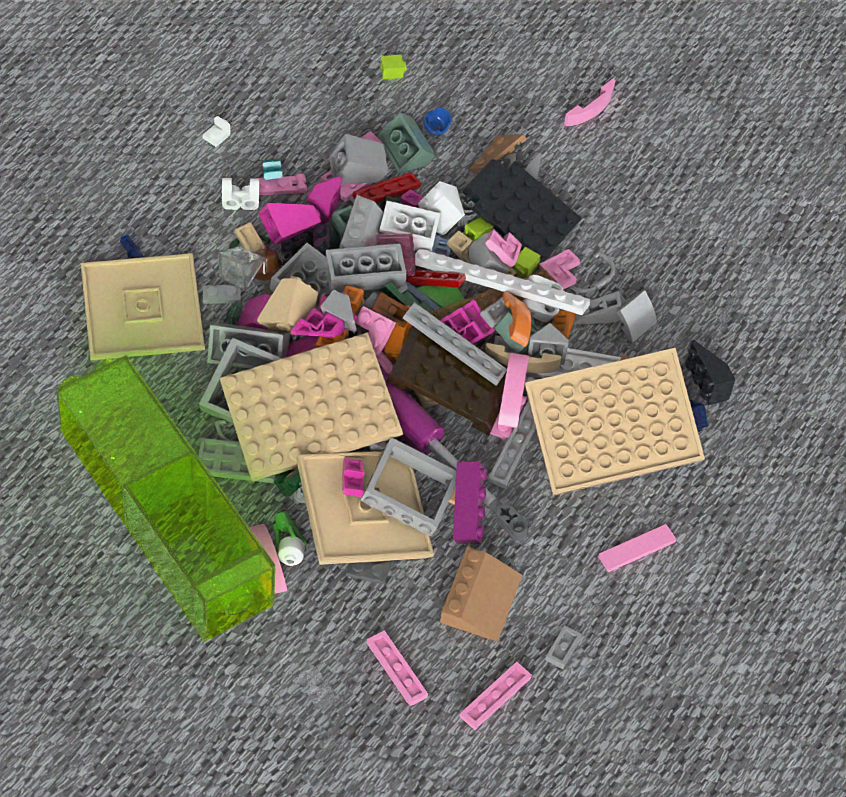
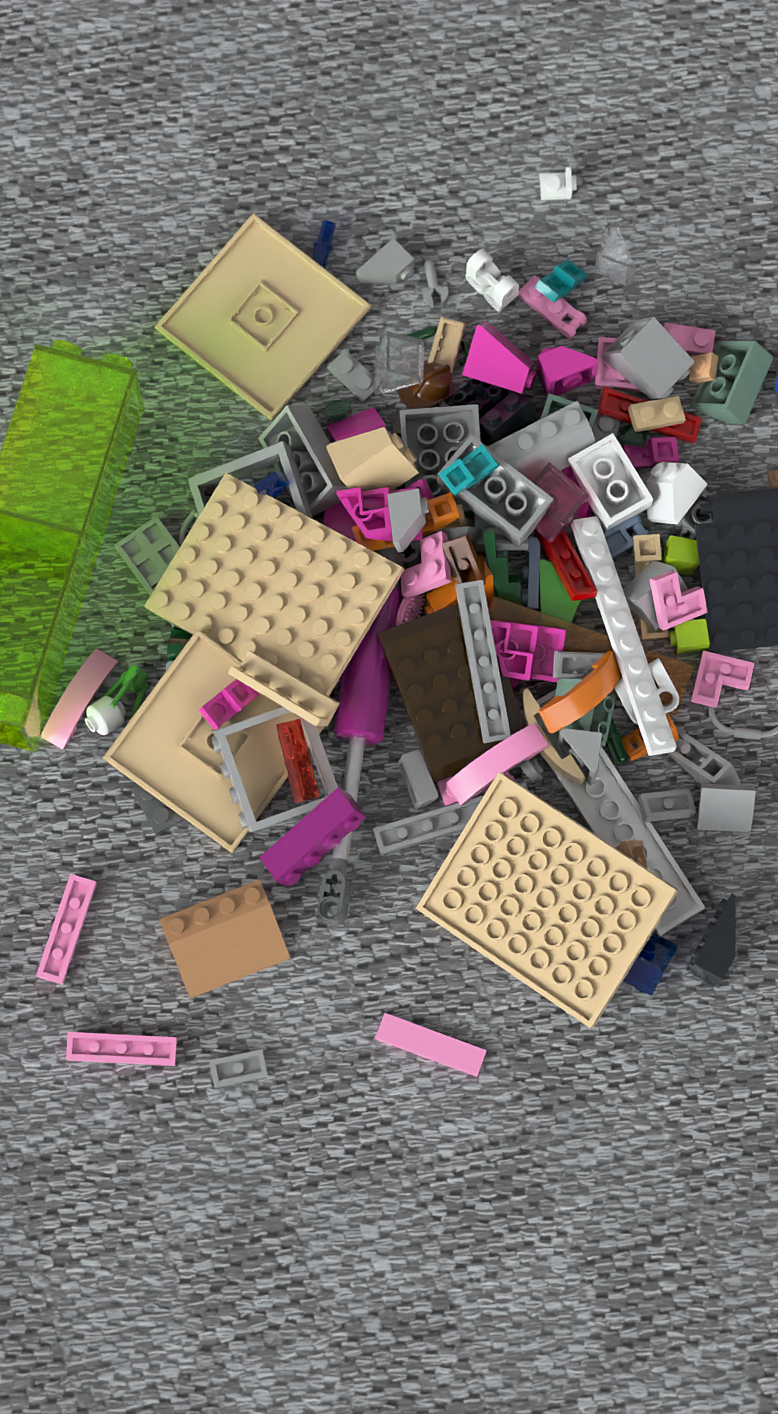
camera: 55 degrees right, 20 degrees up
(178, 231) = (387, 266): none -> light grey slope
(211, 224) = (433, 285): none -> light grey bar
(253, 358) = (272, 484): none -> clear blue plate
(288, 134) = (614, 259): none -> clear slope
(346, 262) = (469, 470): none -> teal slope
(378, 438) = (285, 689): none -> tan fence
(390, 149) = (703, 368): none -> light nougat plate
(391, 183) = (656, 414): none -> tan plate
(421, 469) = (297, 760): none -> clear red plate
(481, 437) = (417, 779): none -> light grey slope
(608, 341) = (666, 805): none -> light grey plate

